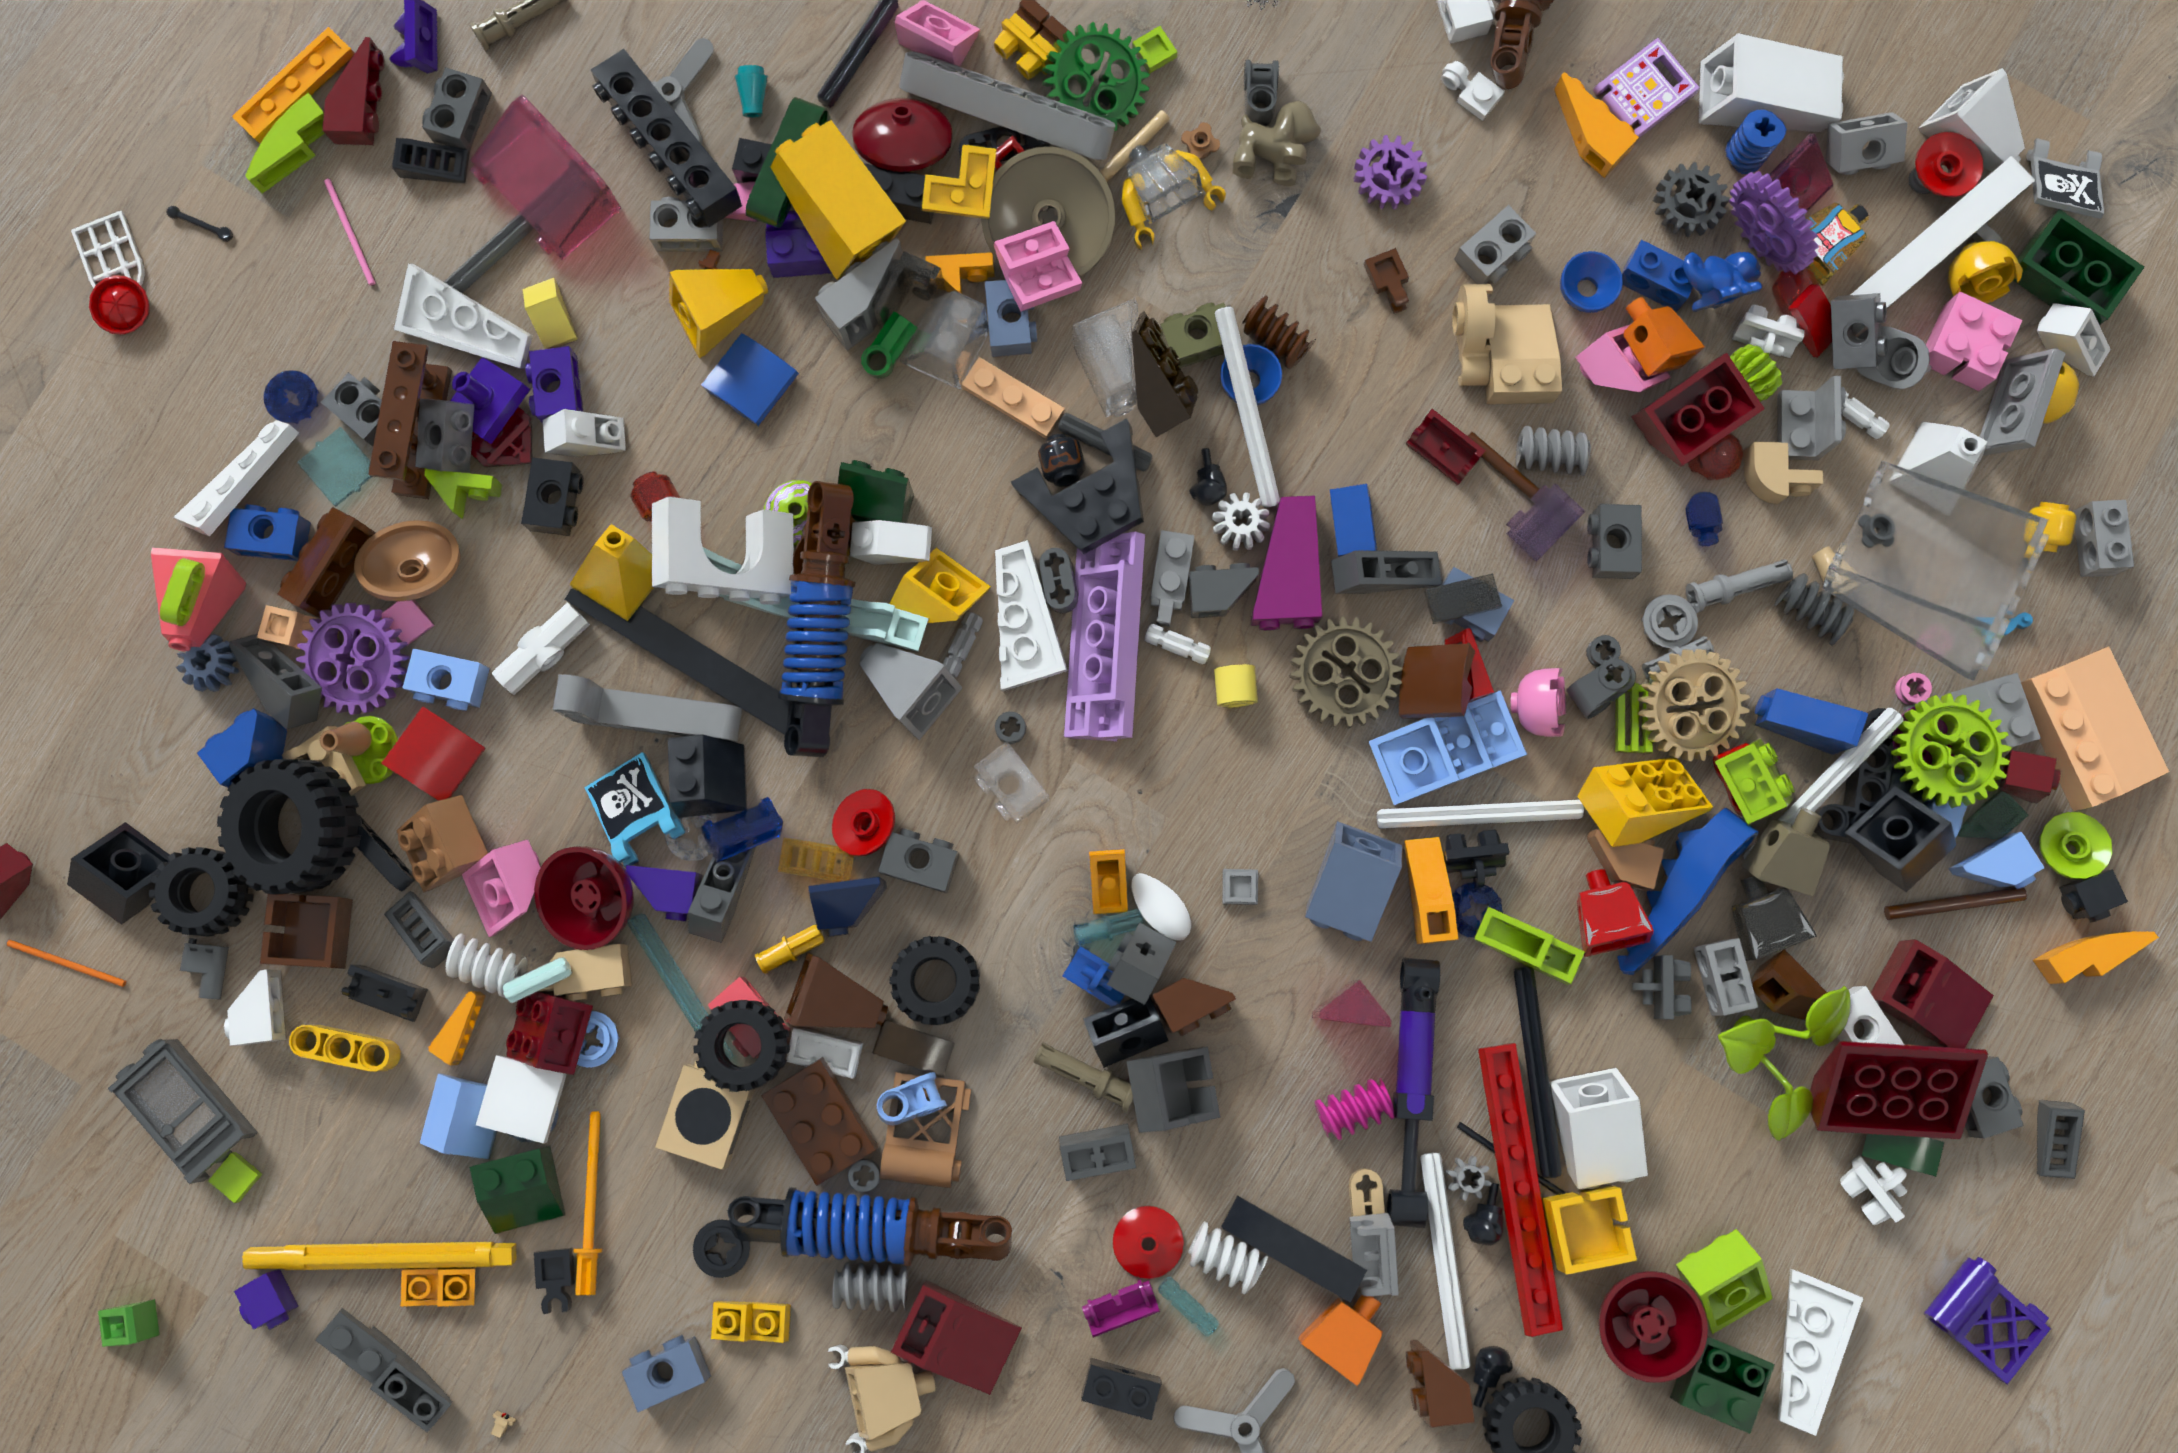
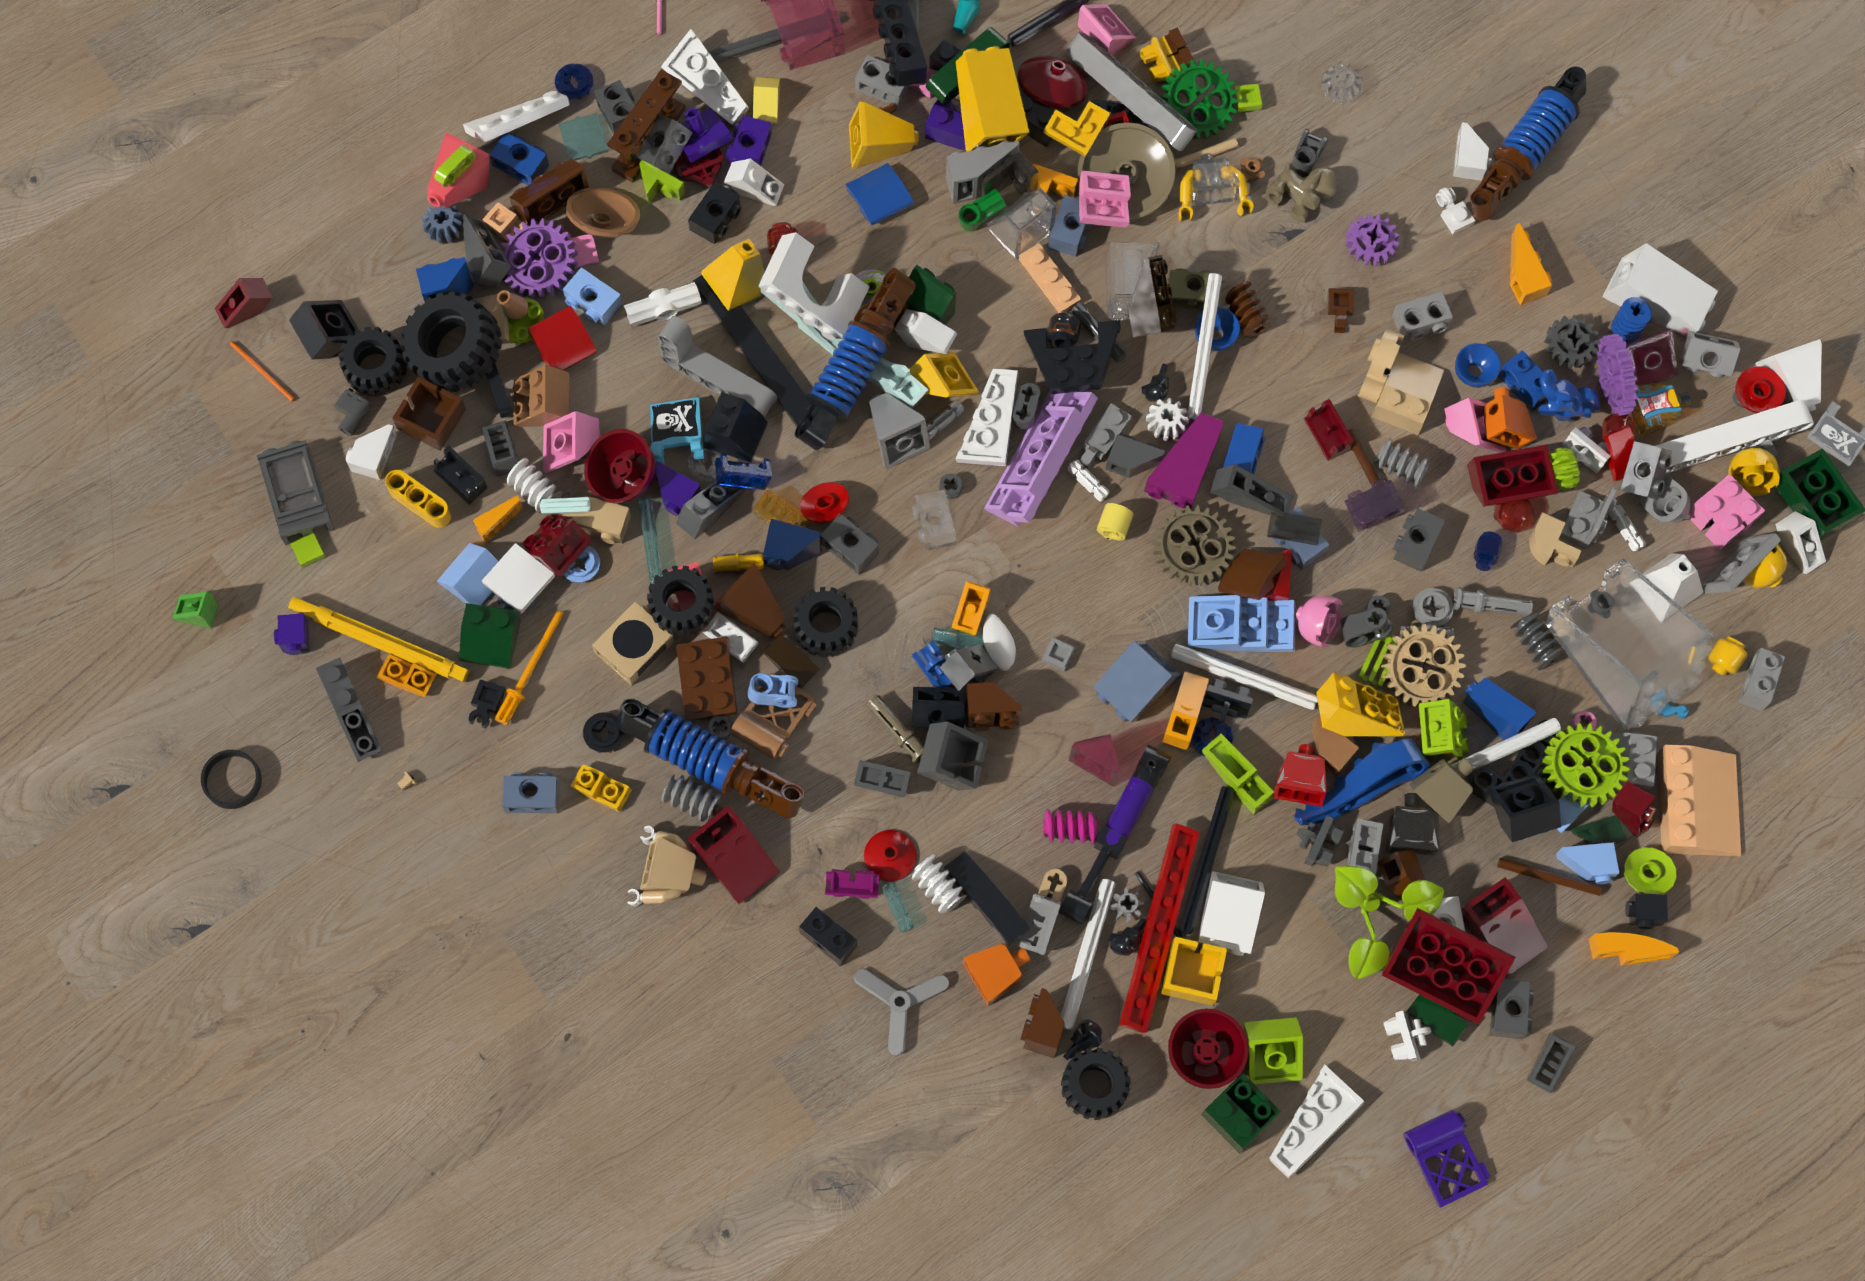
camera: 20 degrees right, 10 degrees down
(1642, 92) = (1569, 259): lavender container -> none

